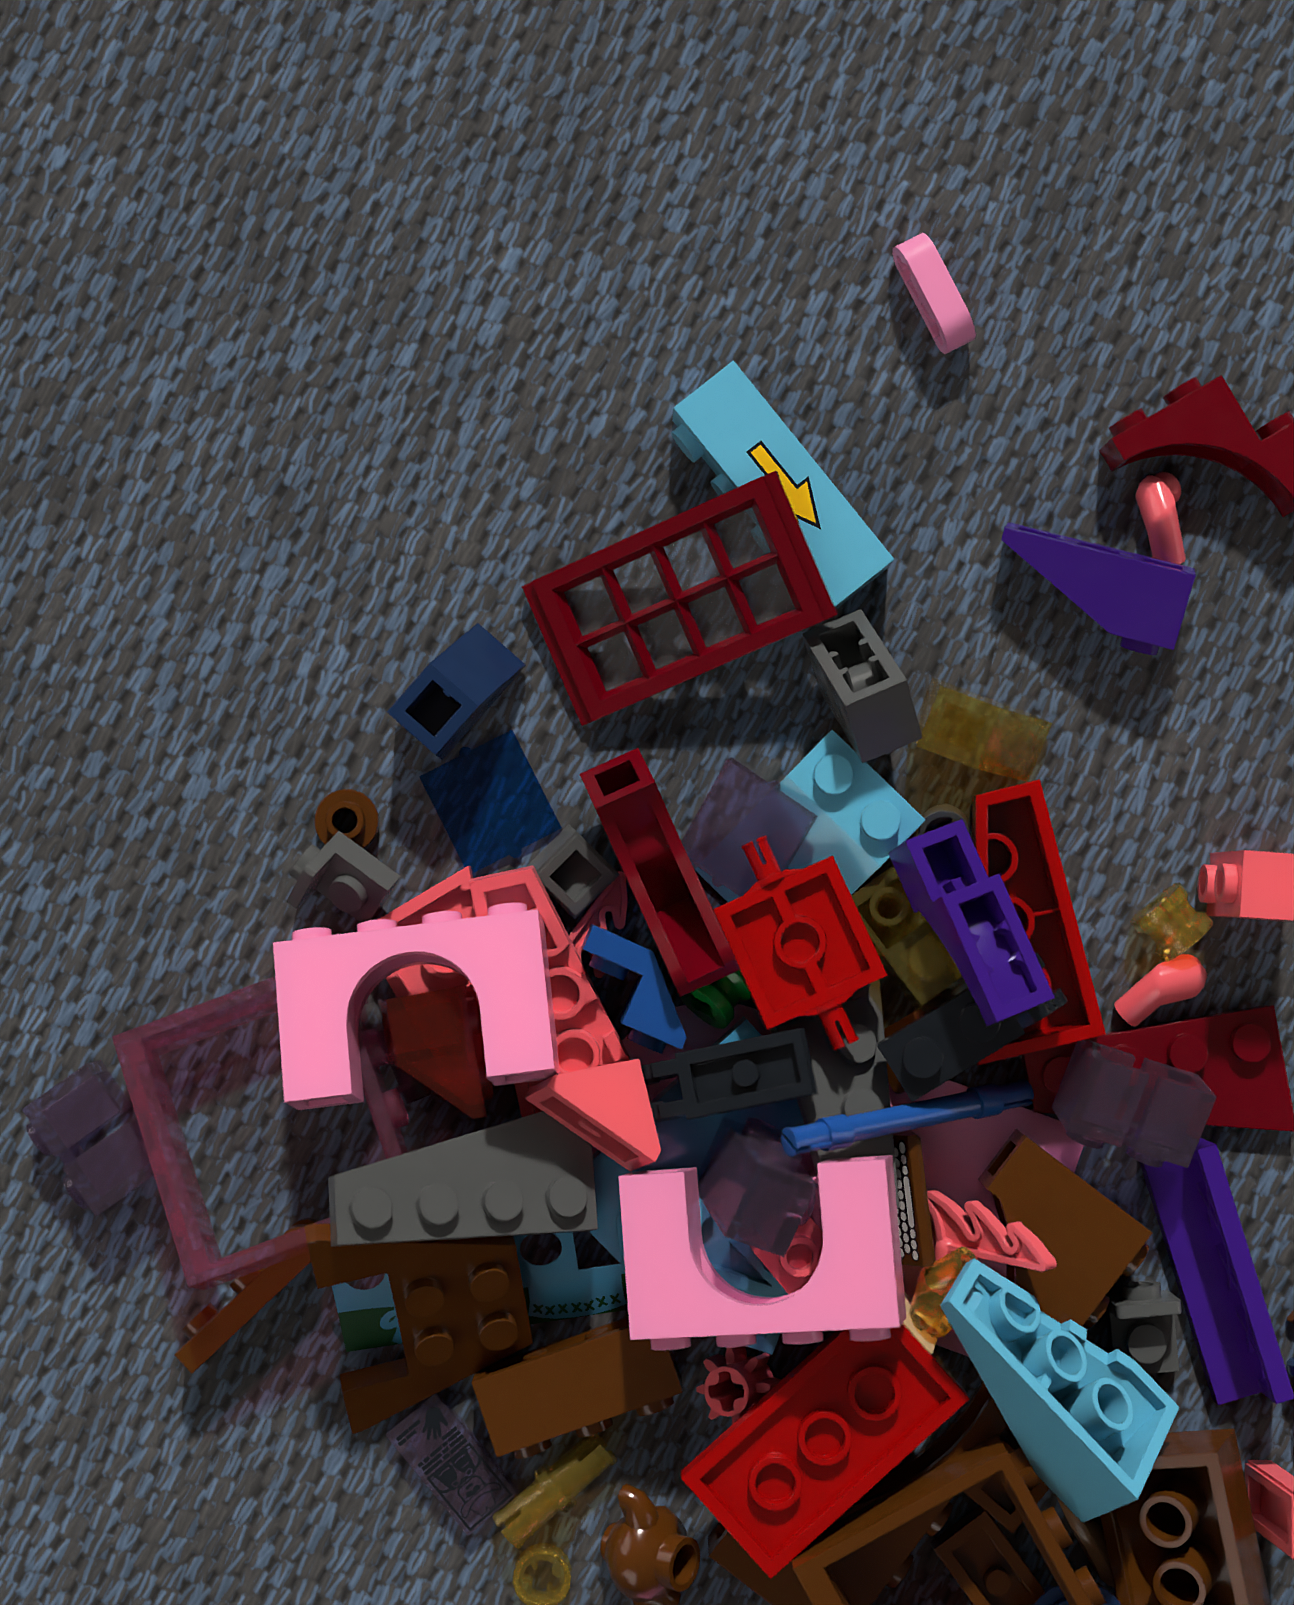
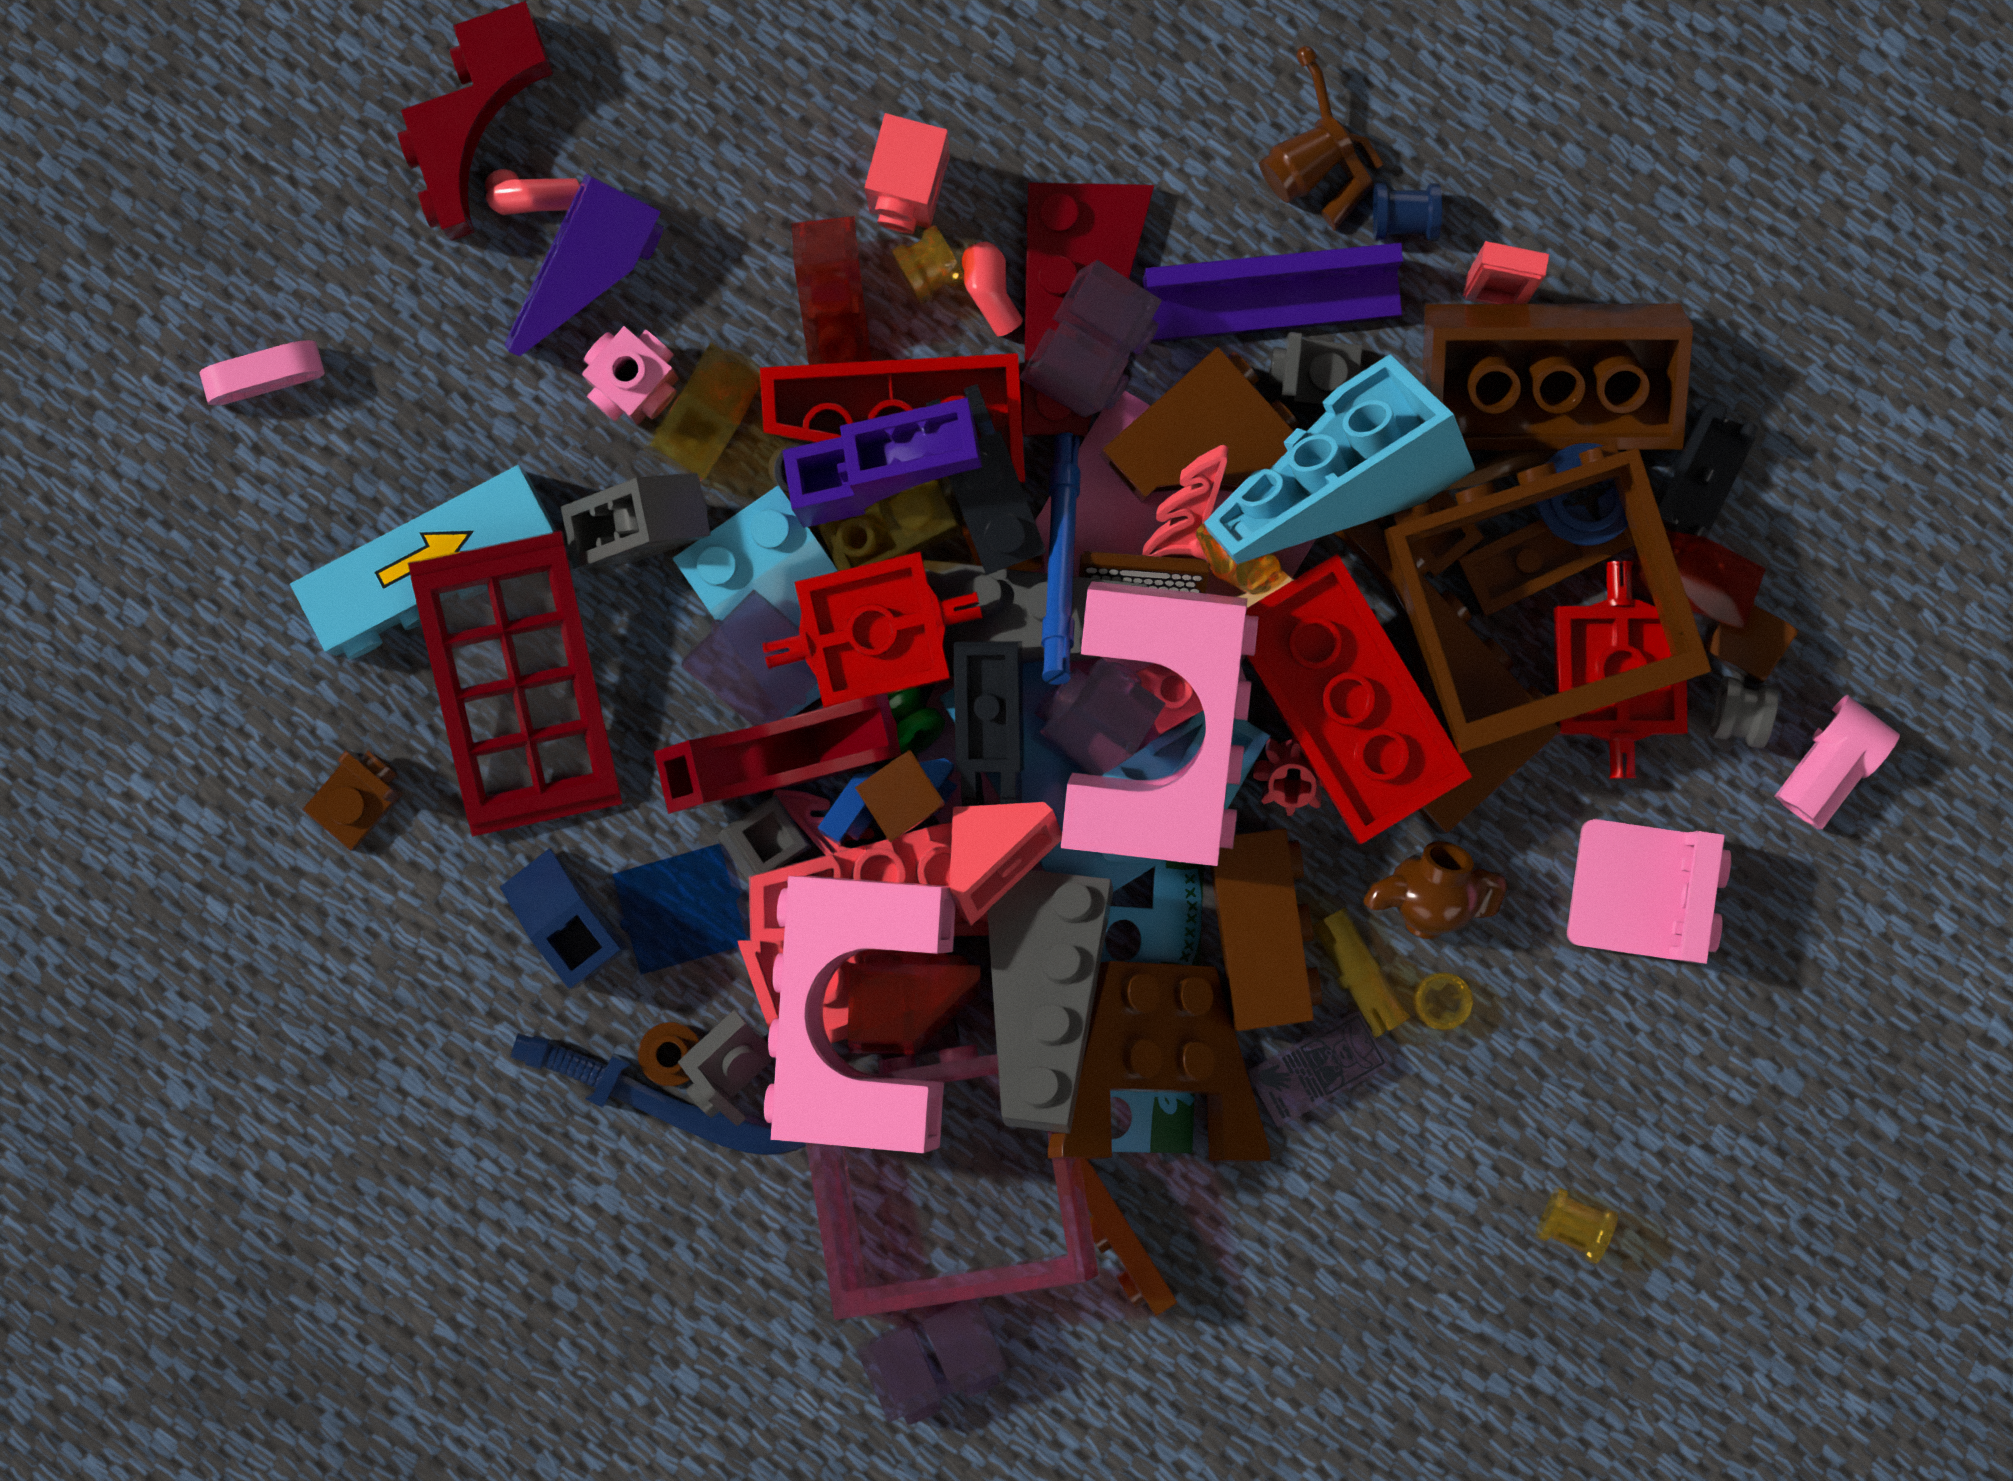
camera: 75 degrees left, 0 degrees up
(308, 766) = (750, 1136): none -> dark blue sword
(538, 465) = (355, 797): none -> reddish brown bracket
(639, 1003) = (900, 796): none -> reddish brown slope
(984, 664) = (645, 394): none -> bright pink brick
(1128, 832) = (831, 290): none -> clear red slope

